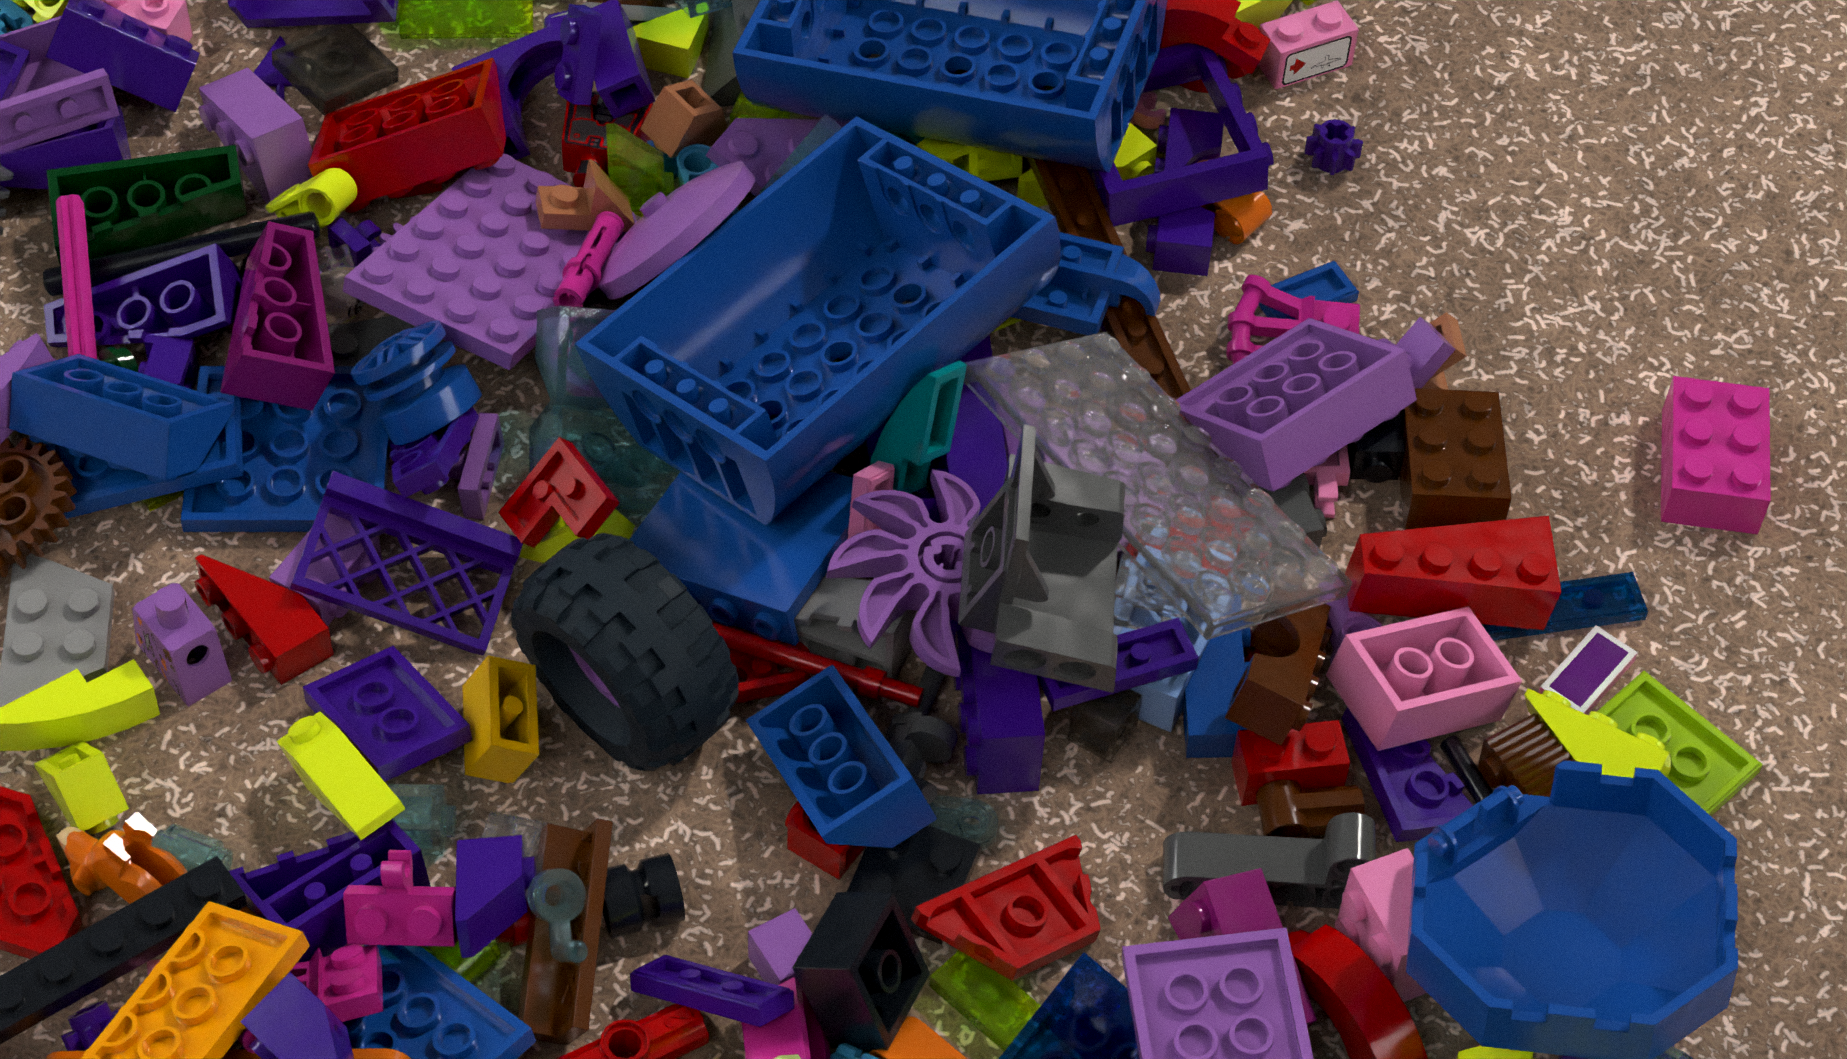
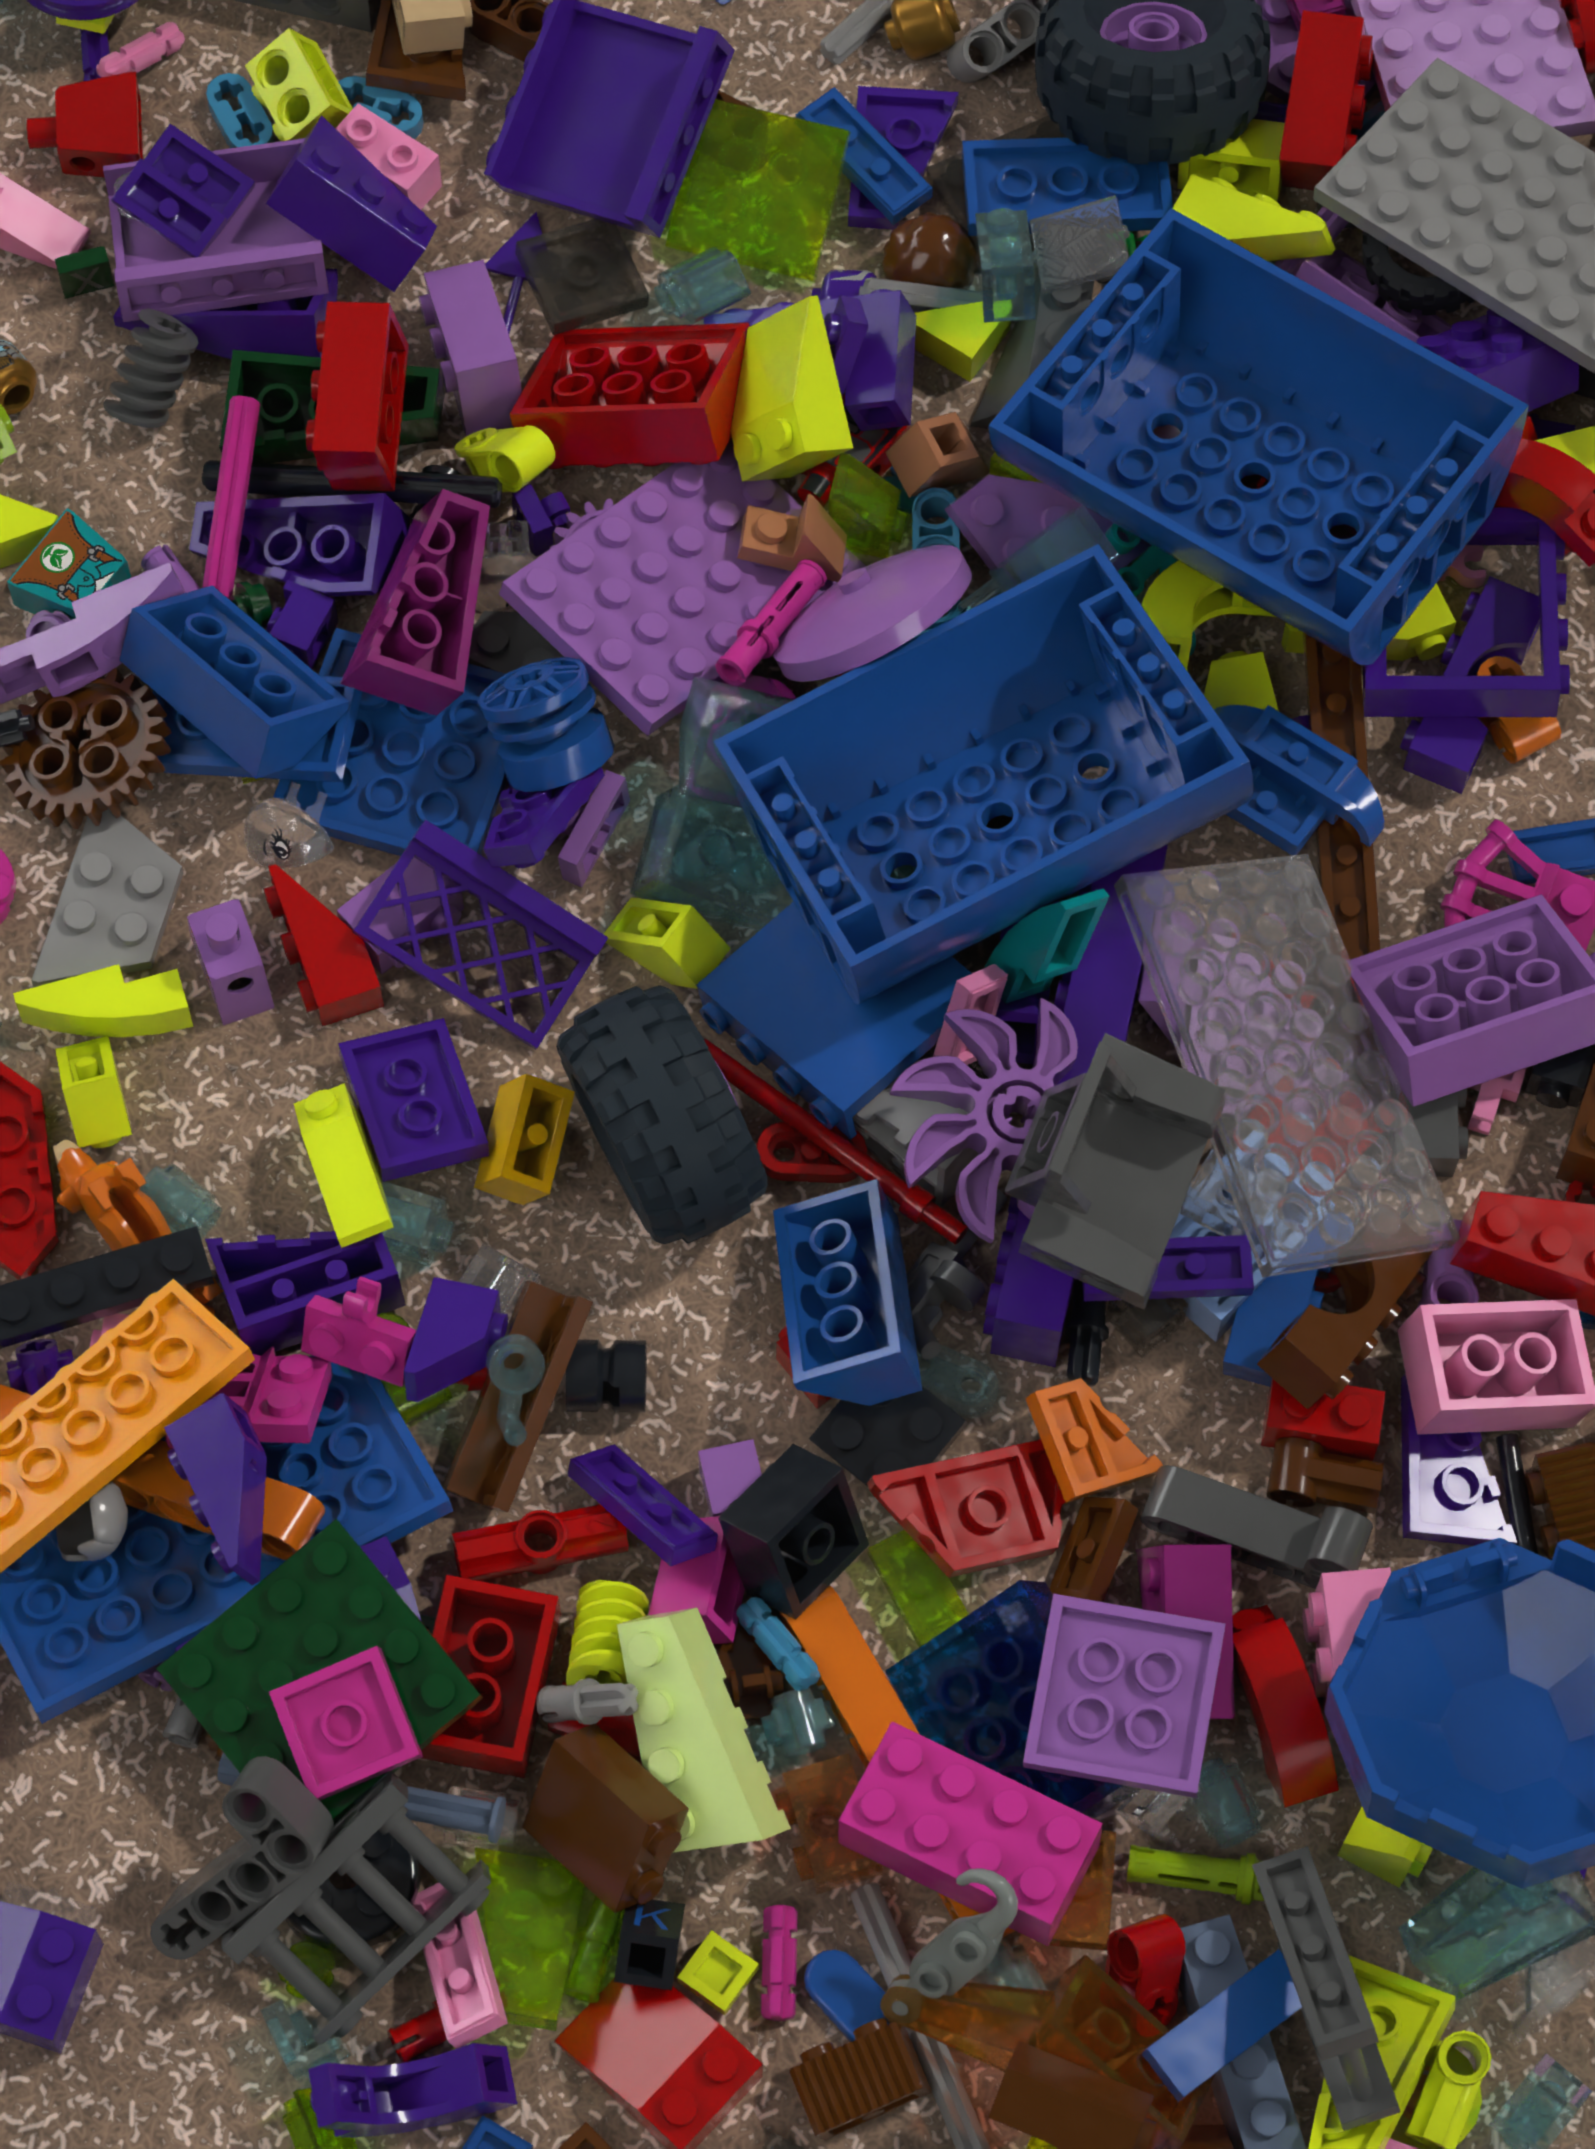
camera: 20 degrees right, 15 degrees up
(171, 167) = (358, 396): none -> red brick
(203, 526) = (286, 834): none -> clear piece
(443, 44) = (701, 285): none -> clear light blue brick
(548, 96) = (788, 397): none -> neon yellow slope
(558, 487) = (654, 899): red plate -> none
(1060, 753) = (1086, 1335): none -> black axle
(1092, 834) = (1086, 1441): none -> orange wing
(1130, 916) = (1094, 1548): none -> reddish brown plate

